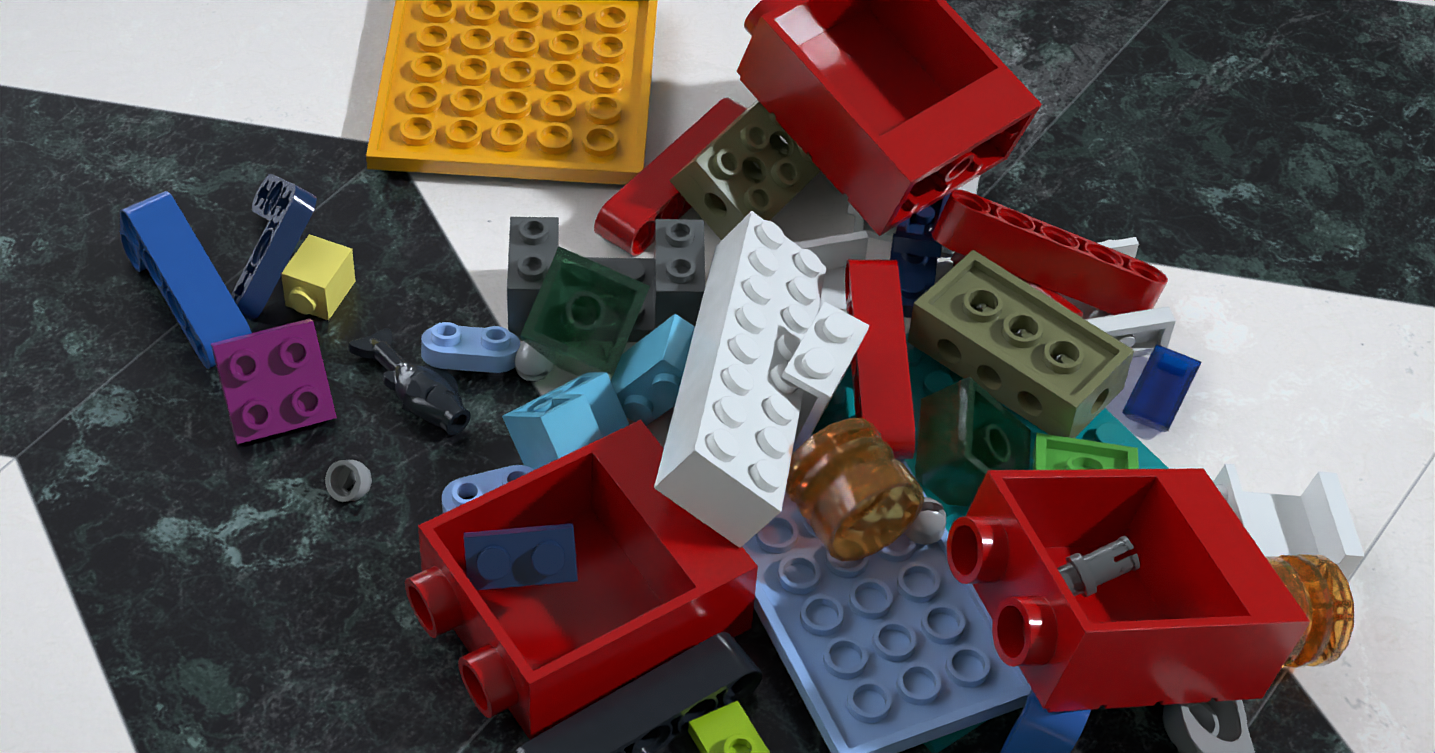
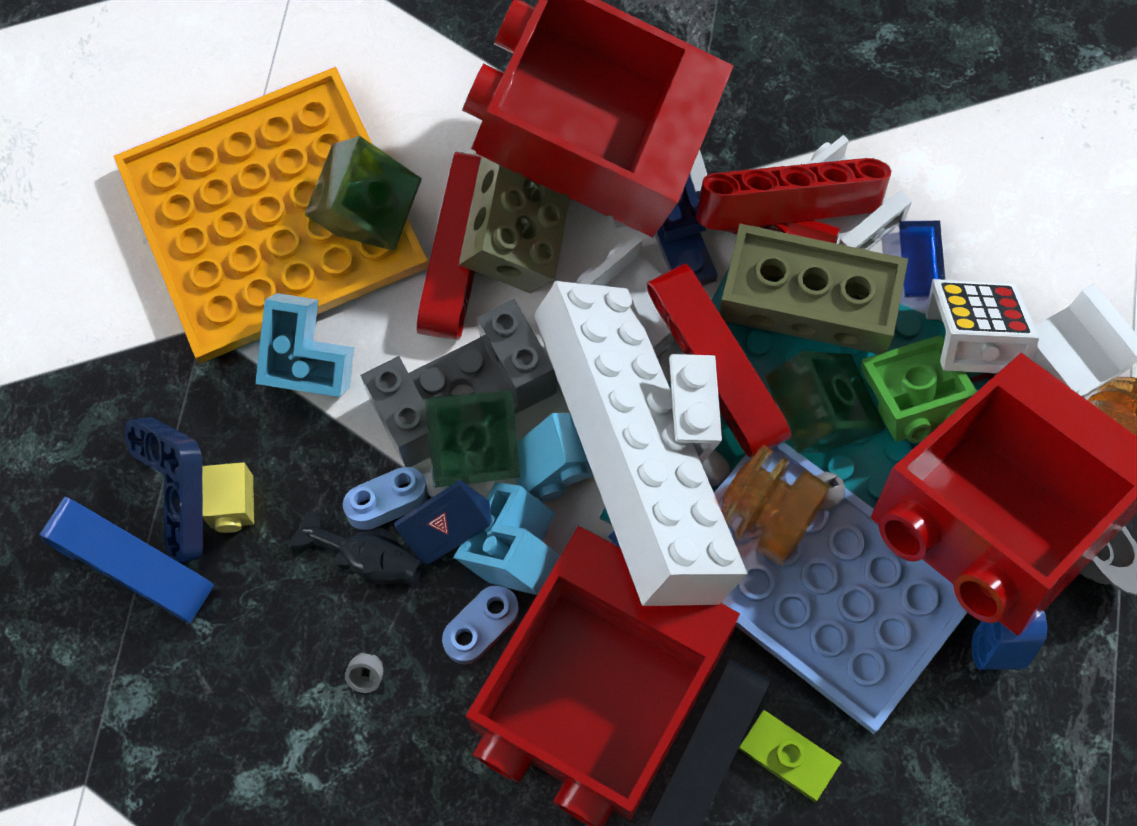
camera: 20 degrees left, 20 degrees up
(273, 380) = (256, 620): magenta plate -> none
(460, 178) = (292, 357): none -> medium azure brick
(512, 378) = (444, 522): none -> dark blue slope
(521, 556) = (554, 695): dark blue plate -> none
(614, 88) = (363, 194): none -> clear green slope
(1088, 571) = (1001, 499): dark grey pin -> none
(1179, 439) = (982, 323): none -> panel

